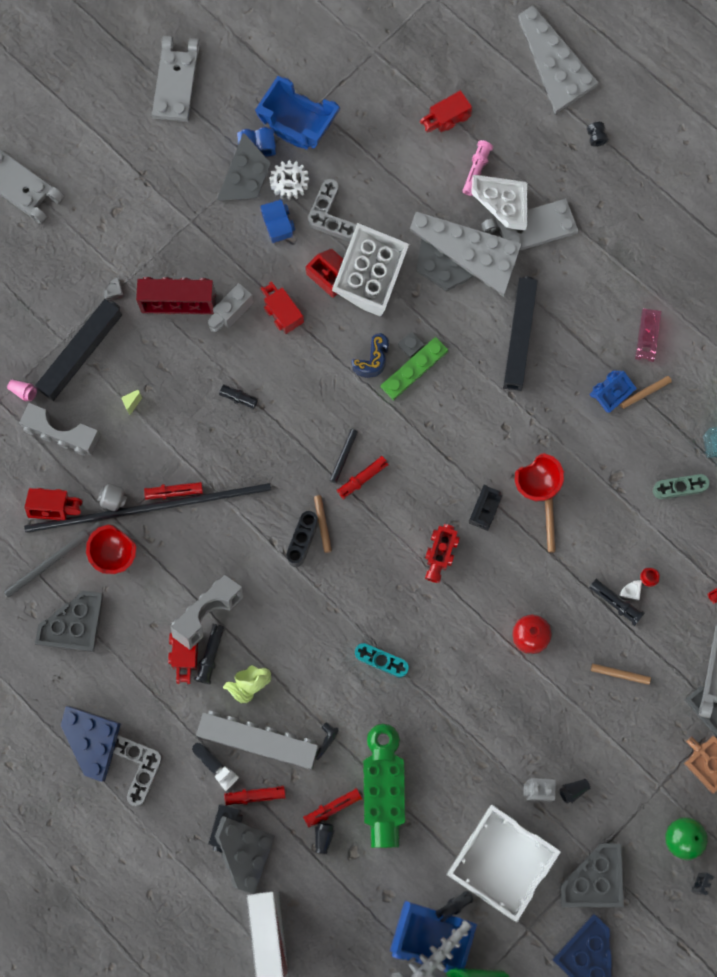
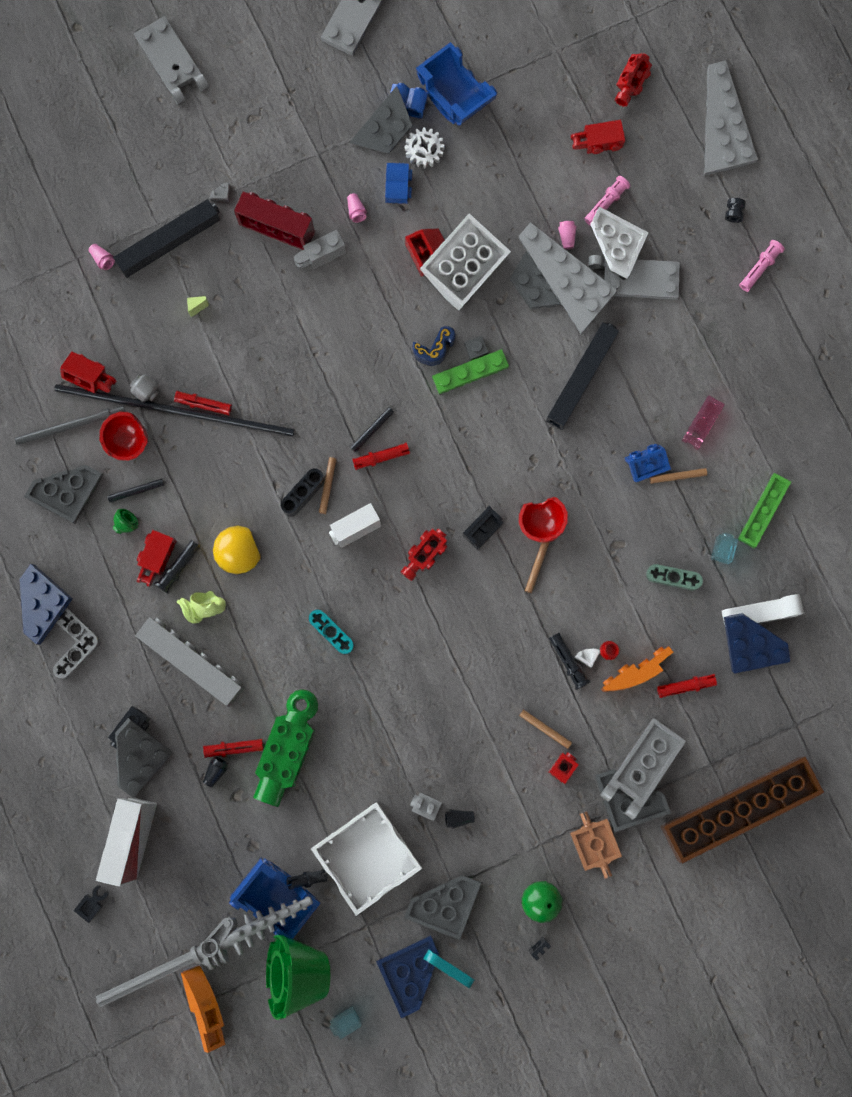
camera: 20 degrees right, 5 degrees up
(80, 438) = (137, 321): light grey arch -> none
(139, 598) = (135, 490): none -> black bar
(142, 631) = (124, 521): none -> green brick
(222, 595) = (209, 516): light grey arch -> none
(224, 776) = (148, 681): piece -> none
(238, 396) = (296, 337): black pin -> none
(248, 259) = (356, 209): none -> bright pink cone
(258, 795) = (161, 708): red pin -> none
(260, 617) = (236, 550): none -> yellow cylinder
(281, 308) = (369, 269): red brick -> none
(323, 213) = (444, 192): light grey beam -> none
(331, 735) = (259, 681): black bar -> none
(365, 550) = (354, 526): none -> white brick
(453, 210) = (567, 233): none -> bright pink cone
(455, 50) = (632, 78): none -> red brick
(531, 634) = (478, 661): red cylinder -> none
(625, 938) = (449, 969): none -> teal beam
(643, 167) = (766, 259): none -> bright pink pin
(659, 698) = (560, 775): none -> red brick
(681, 592) = (631, 676): none -> orange slope

